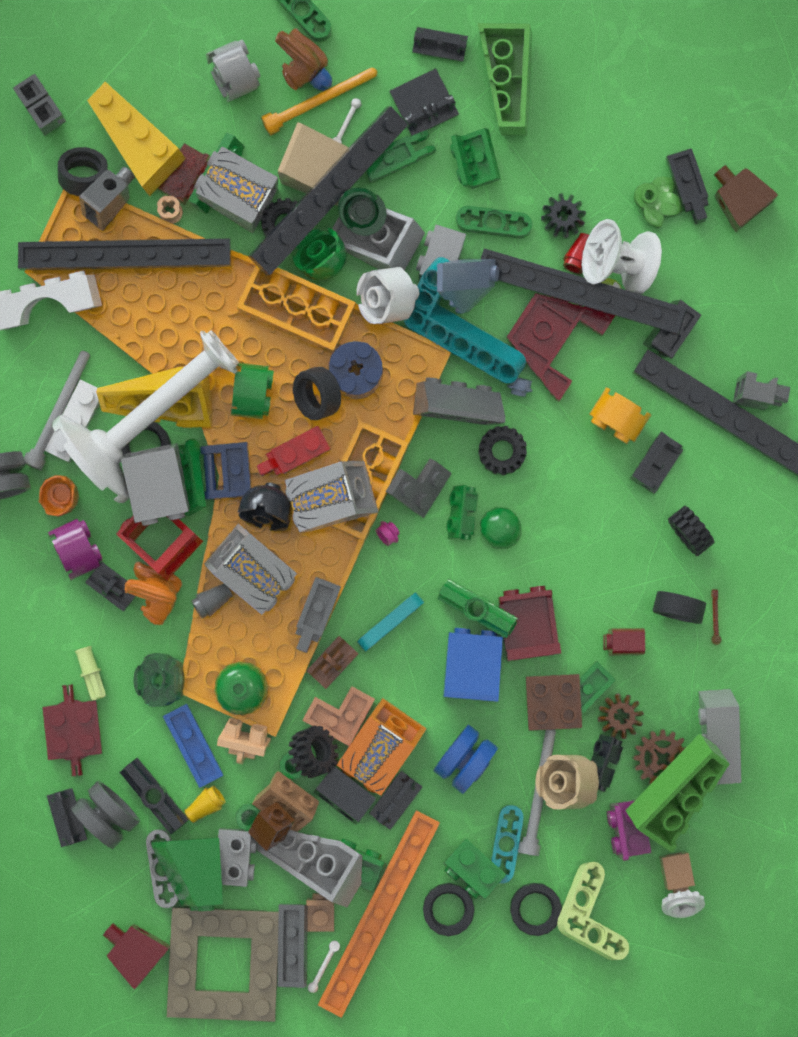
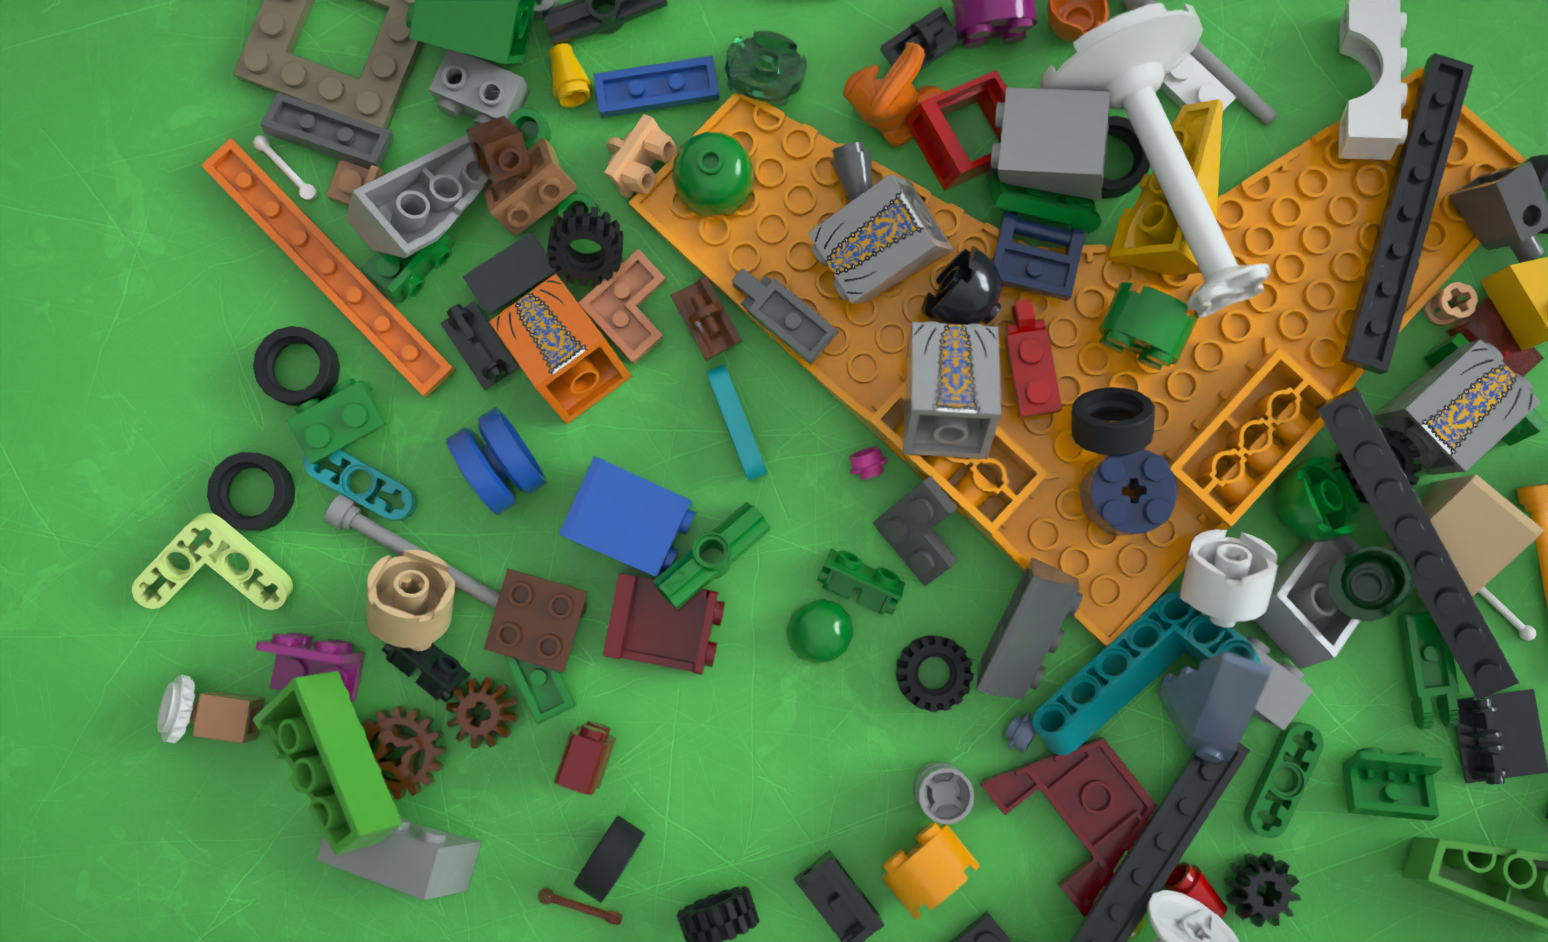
camera: 105 degrees right, 0 degrees up
(571, 422) = (943, 792): none -> light grey wheel

